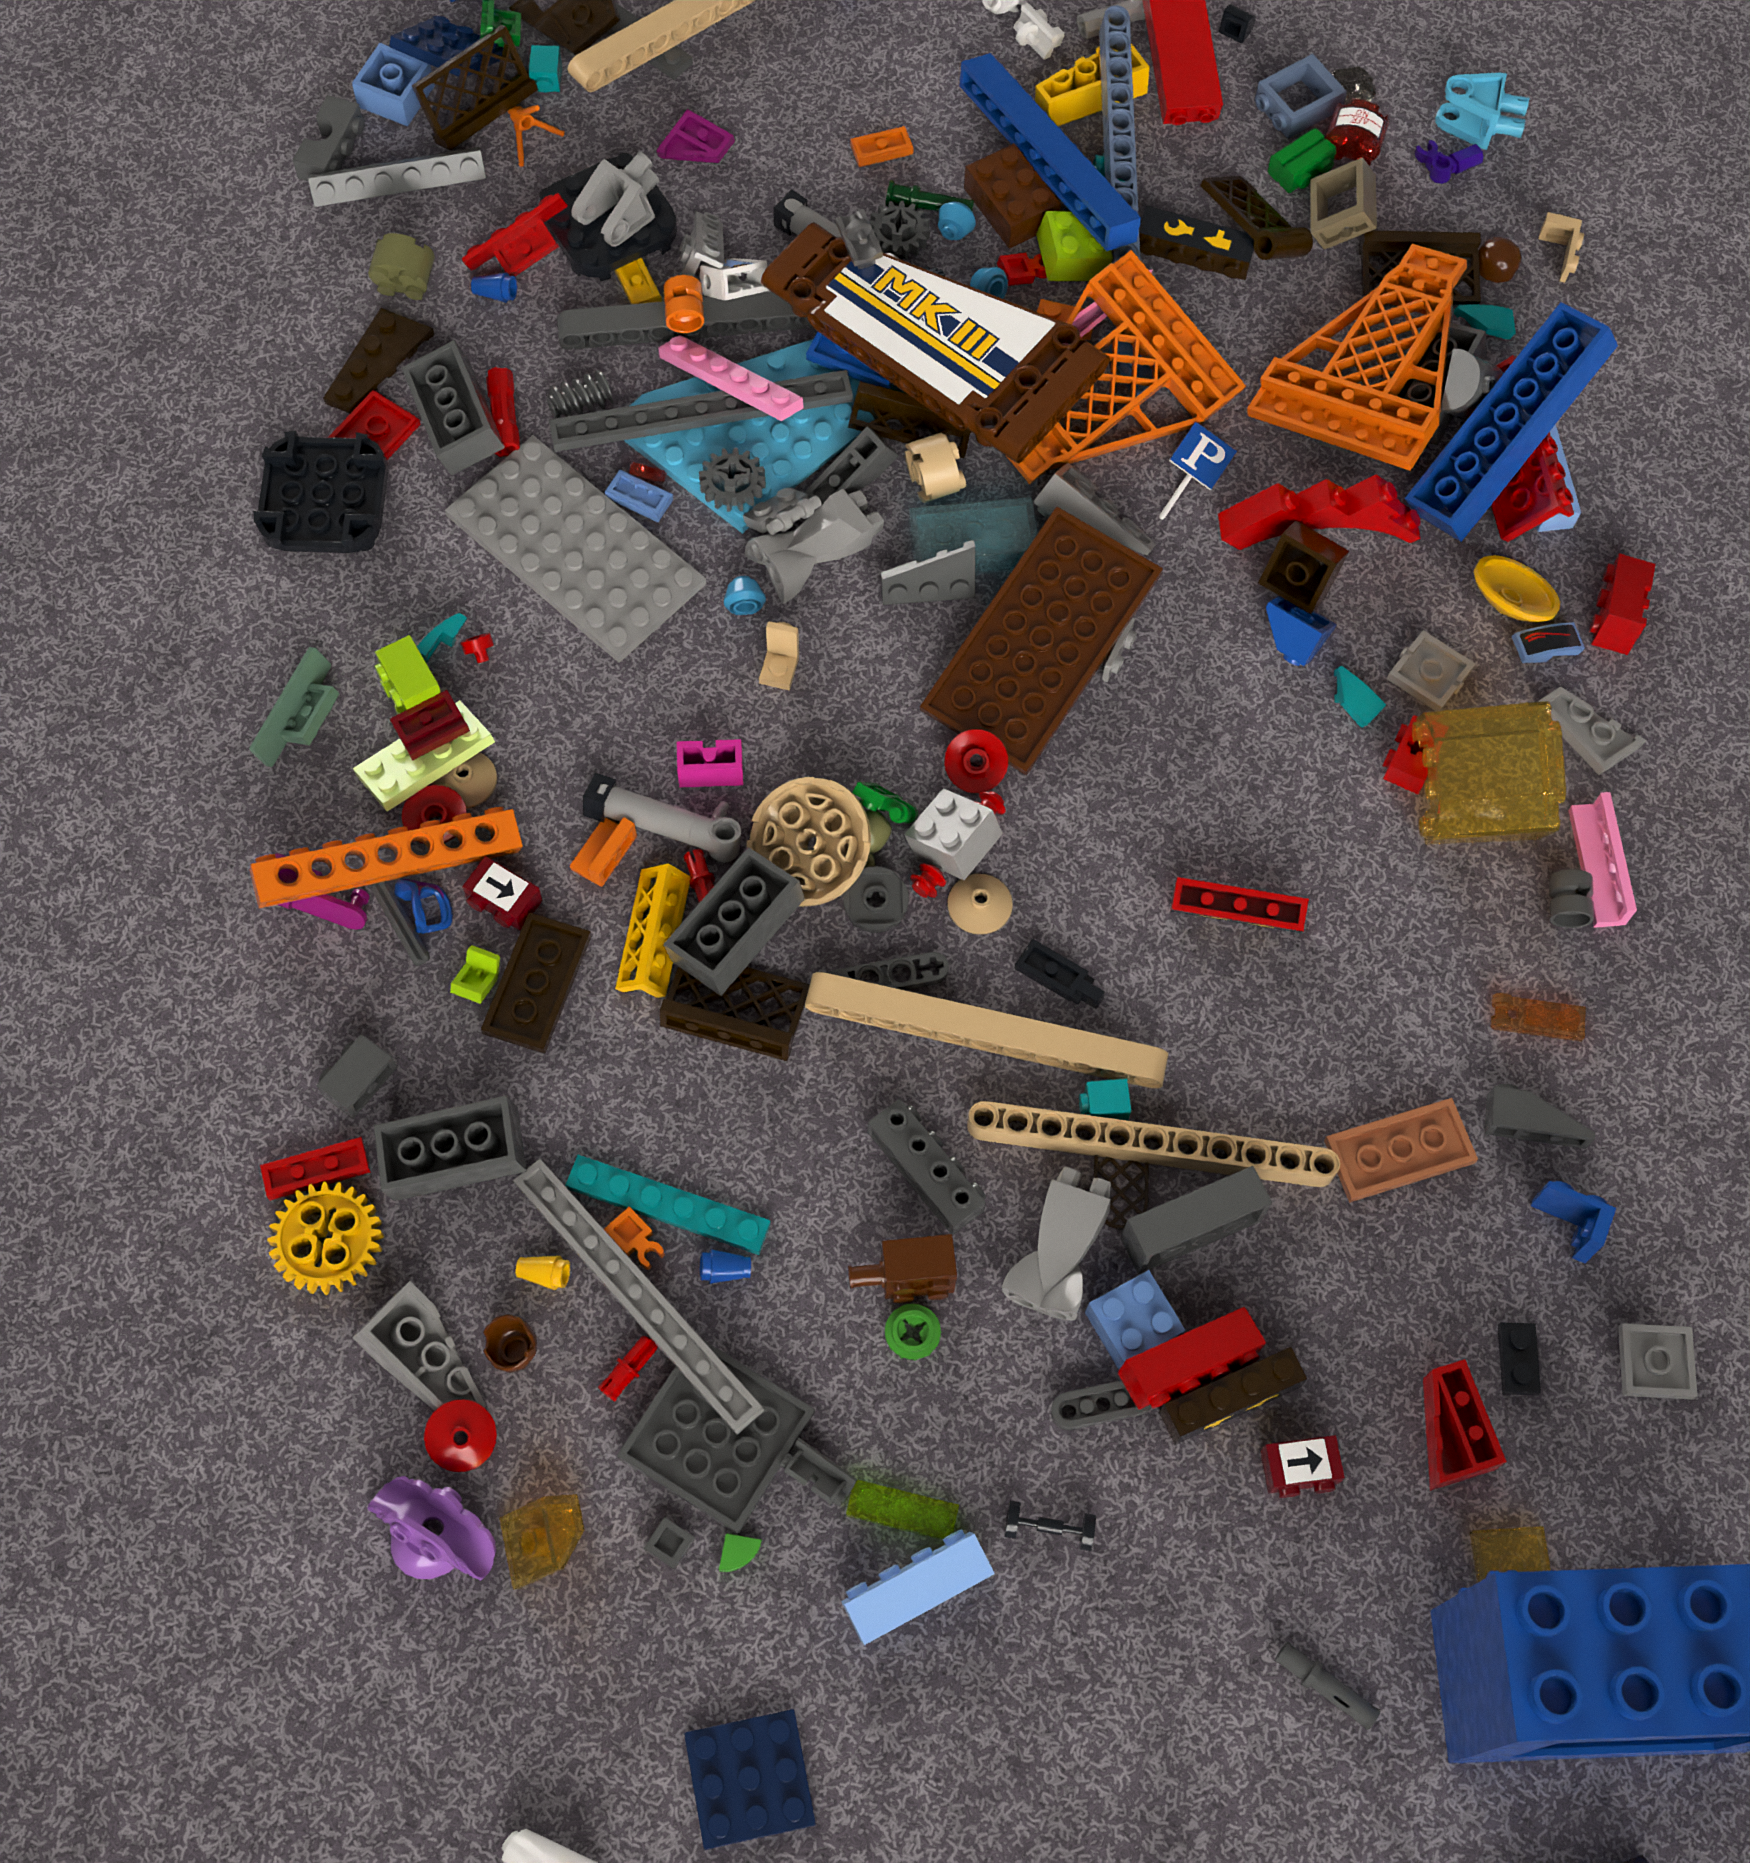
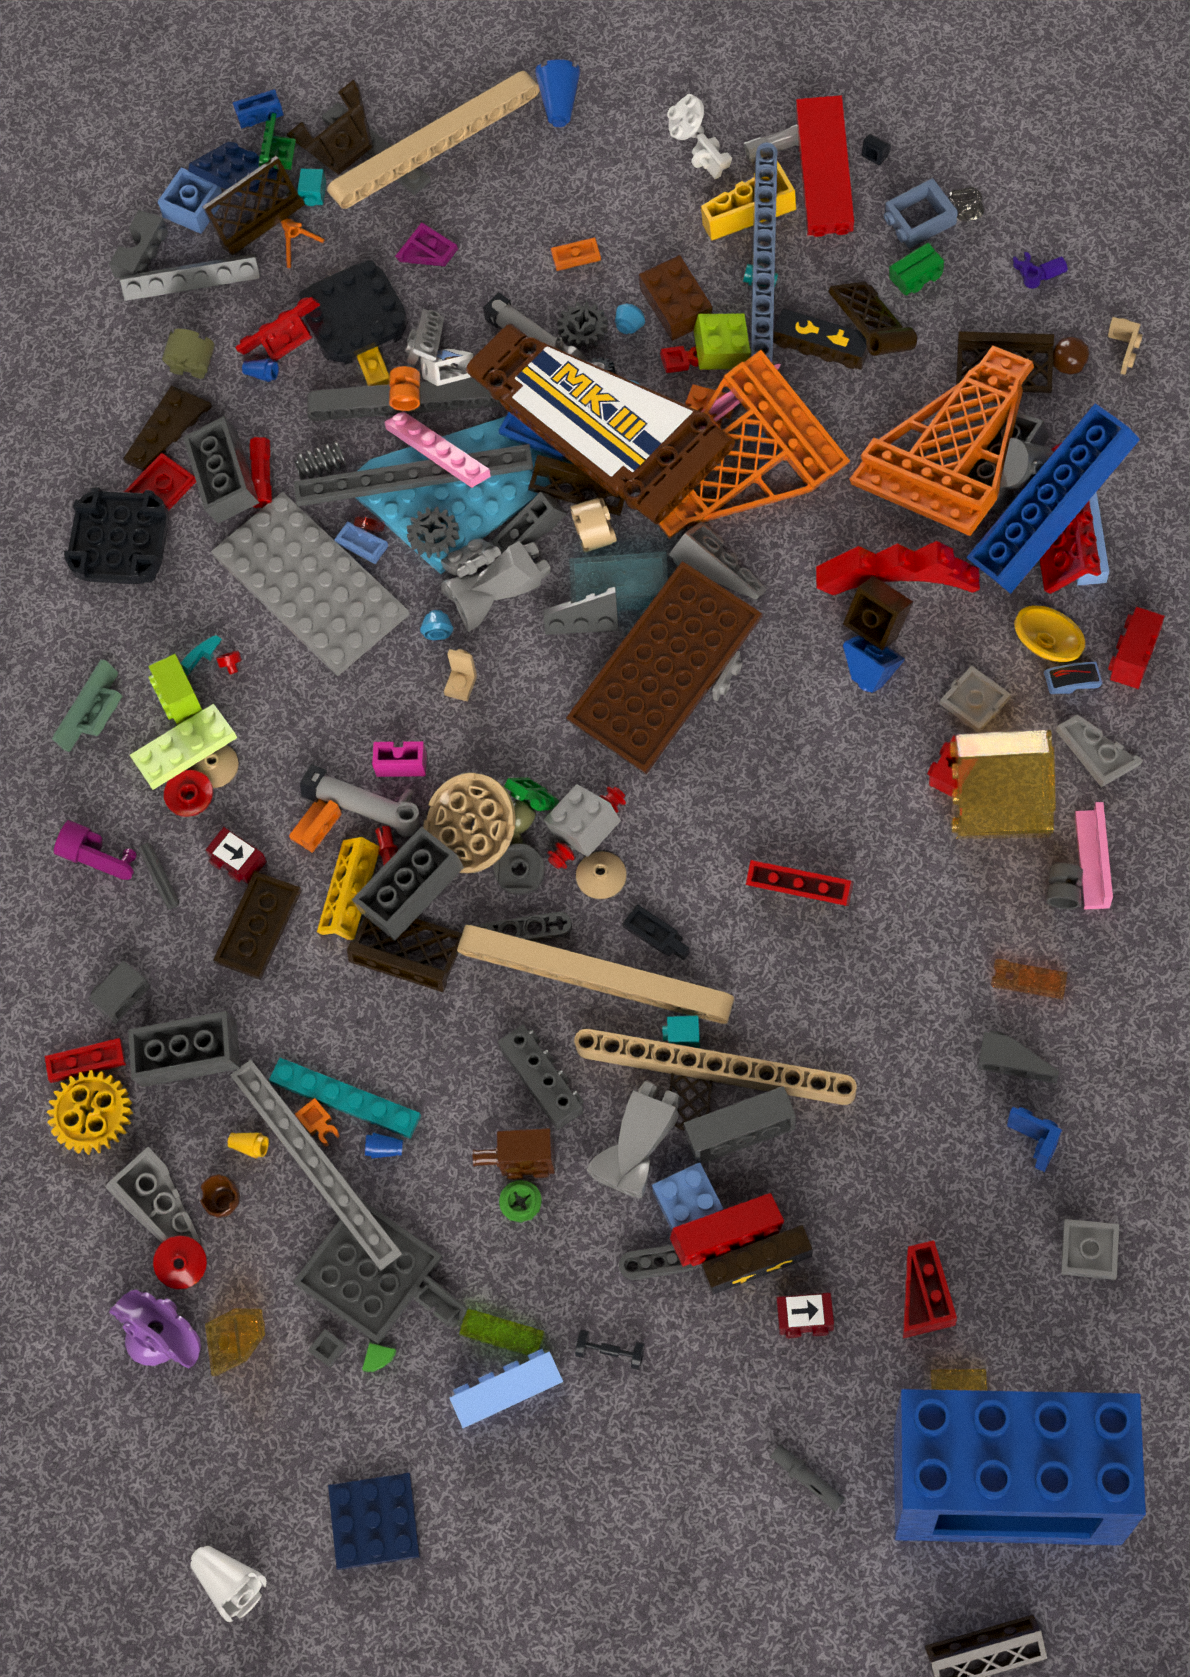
camera: 15 degrees right, 0 degrees up
(272, 891) = (61, 850): orange brick -> none
(415, 890) = (169, 851): blue piece -> none
(429, 725) = (187, 723): dark red plate -> none
(477, 975) = (213, 918): lime bracket -> none
(621, 187) = (362, 292): light grey piece -> none
(628, 1368) = (306, 1218): red axle -> none
(859, 239) = (541, 340): flat silver hips -> none
(921, 199) = (604, 299): dark green pin -> none
(971, 777) = (597, 771): red dish -> none
(990, 280) = (651, 373): dark azure cone -> none
(1050, 152) = (706, 263): blue brick -> none
(1202, 458) = (809, 519): blue piece -> none
(1356, 697) = (913, 719): teal slope -> none
(1357, 130) = (962, 246): clear red brick -> none
(1360, 218) = (956, 321): dark tan window -> none
(1401, 1149) = (908, 1078): nougat plate -> none
(1480, 108) = (1068, 225): medium azure piece -> none
(1493, 319) = (1056, 406): teal slope -> none
(1519, 1359) = (983, 1242): black plate -> none

